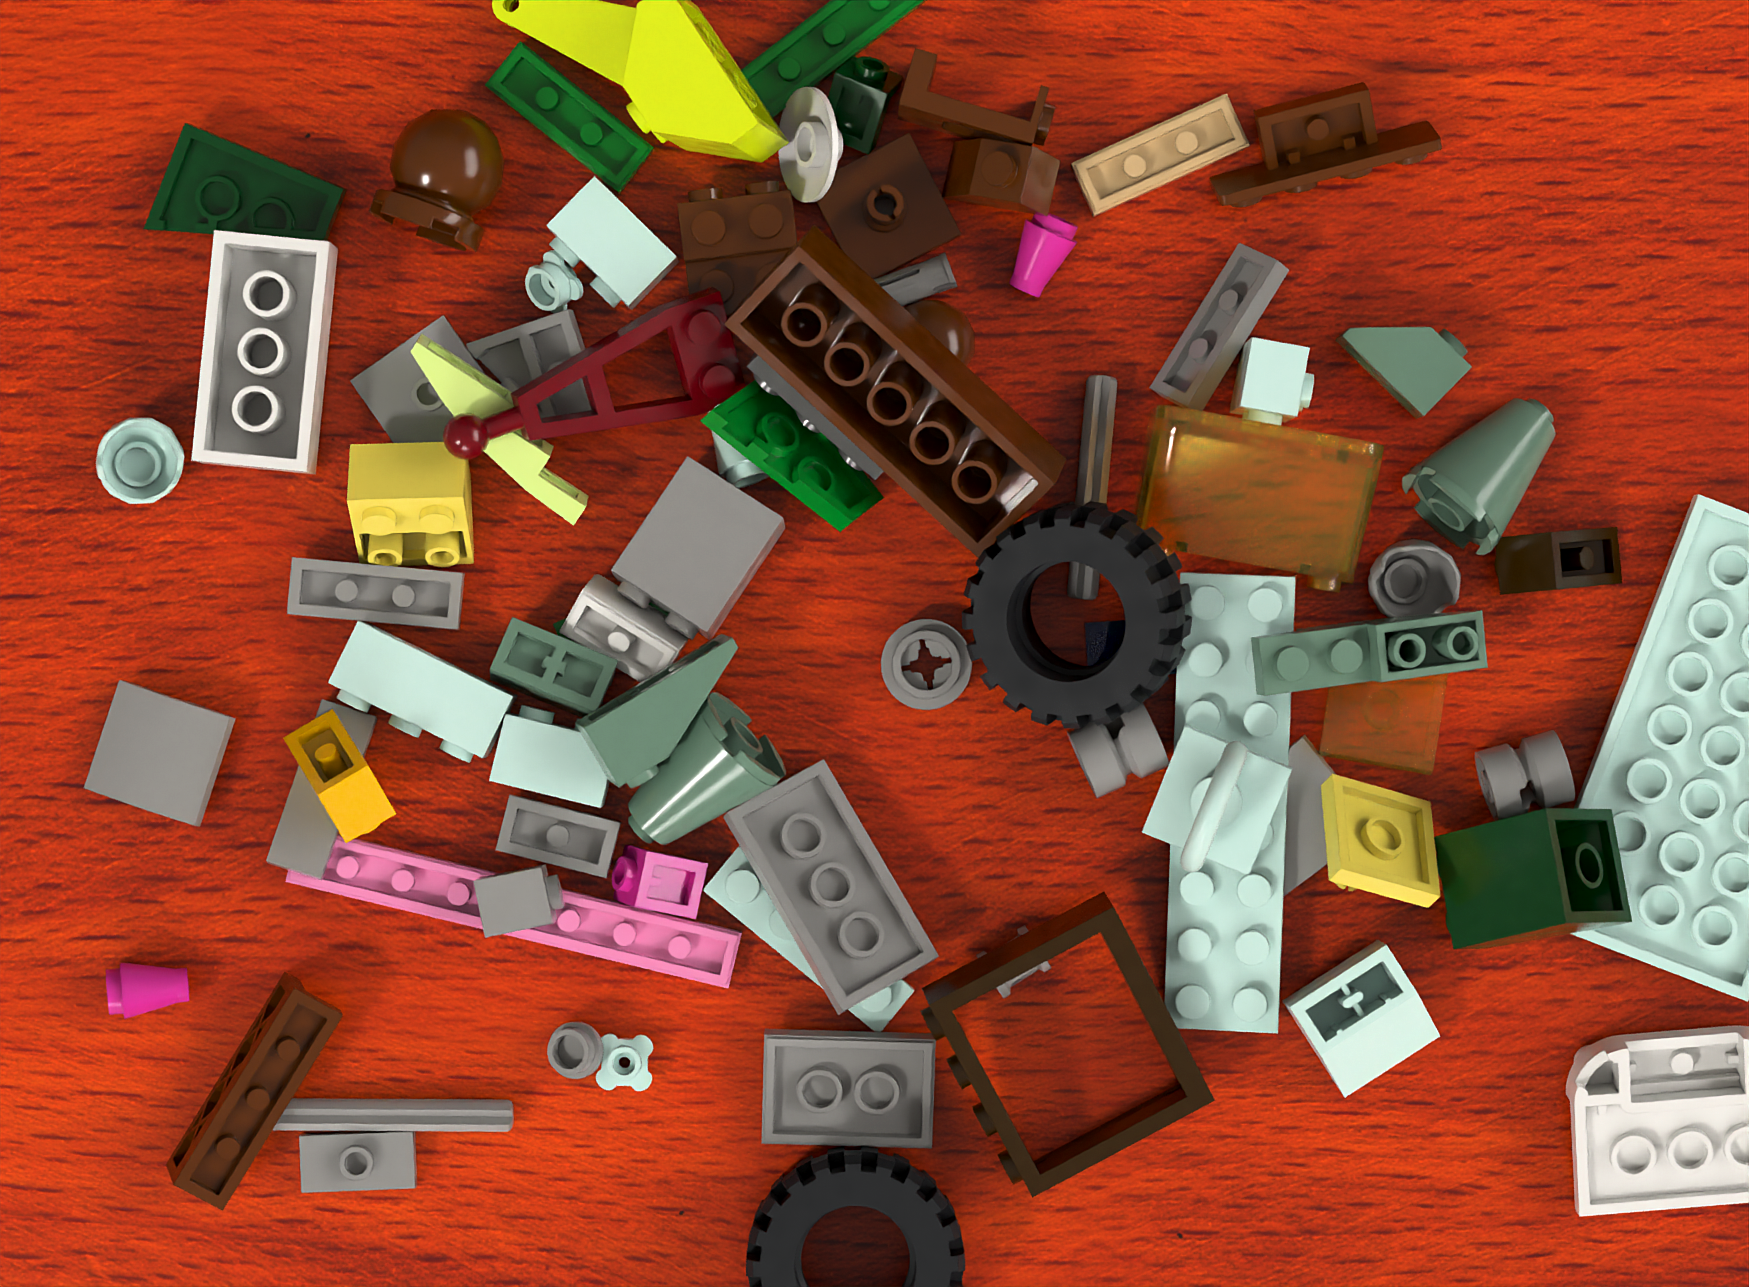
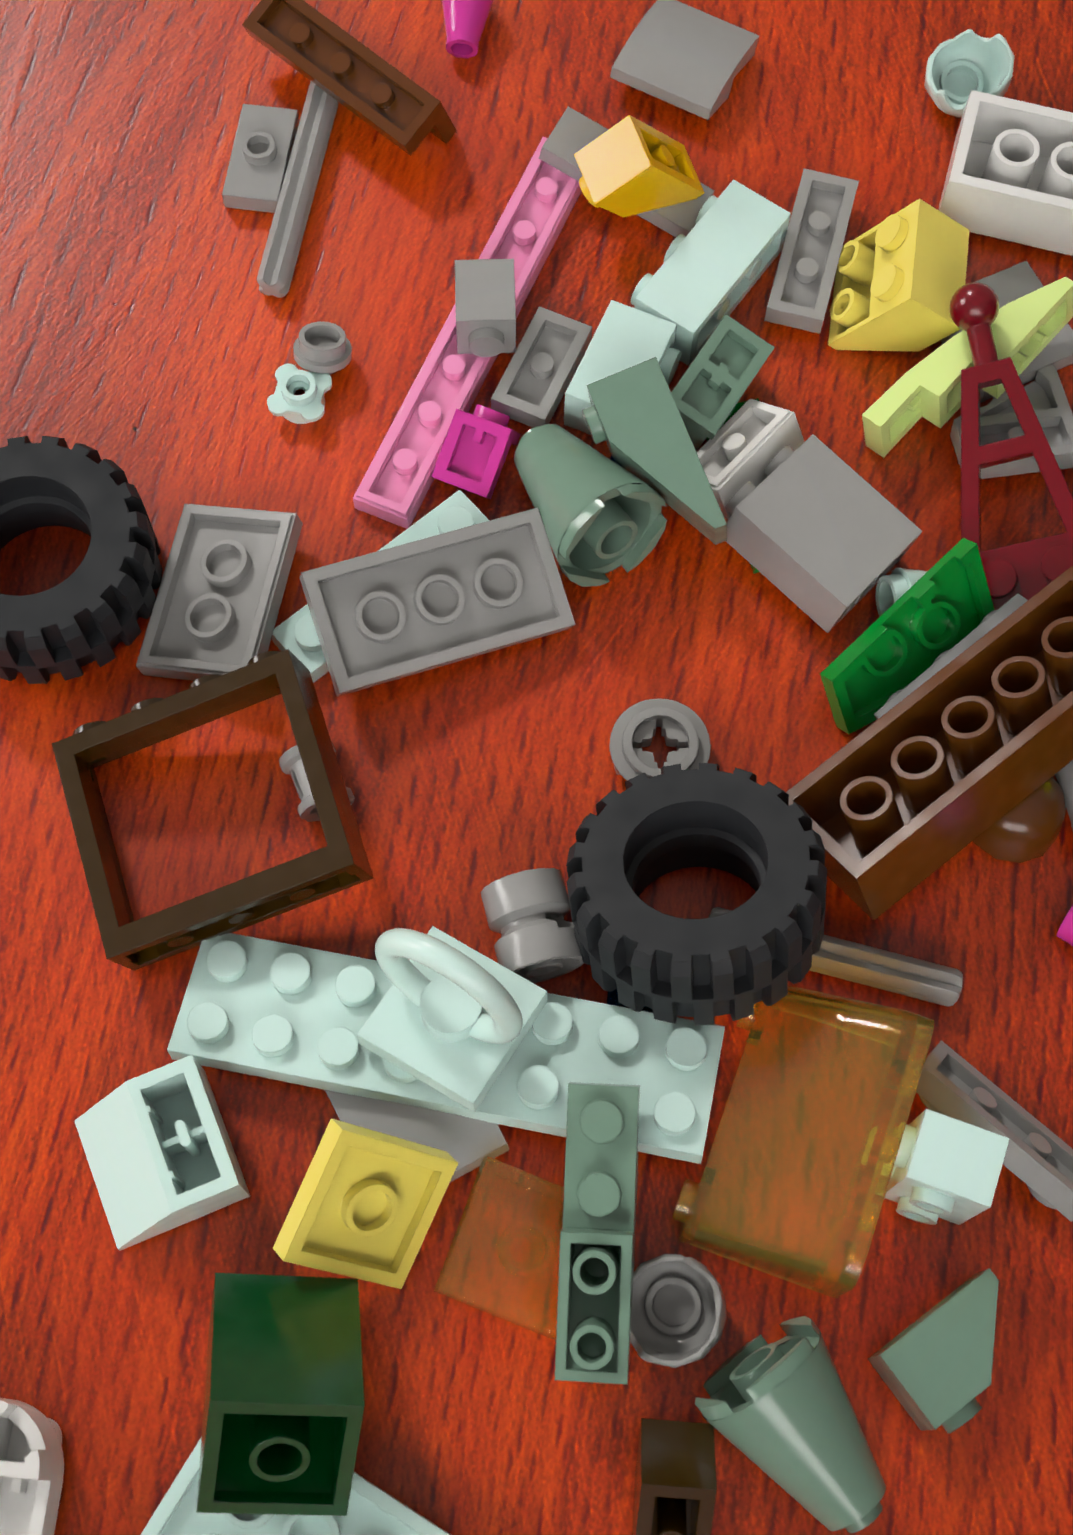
camera: 100 degrees right, 20 degrees down
(1525, 775) = (410, 1410): light grey wheel -> none

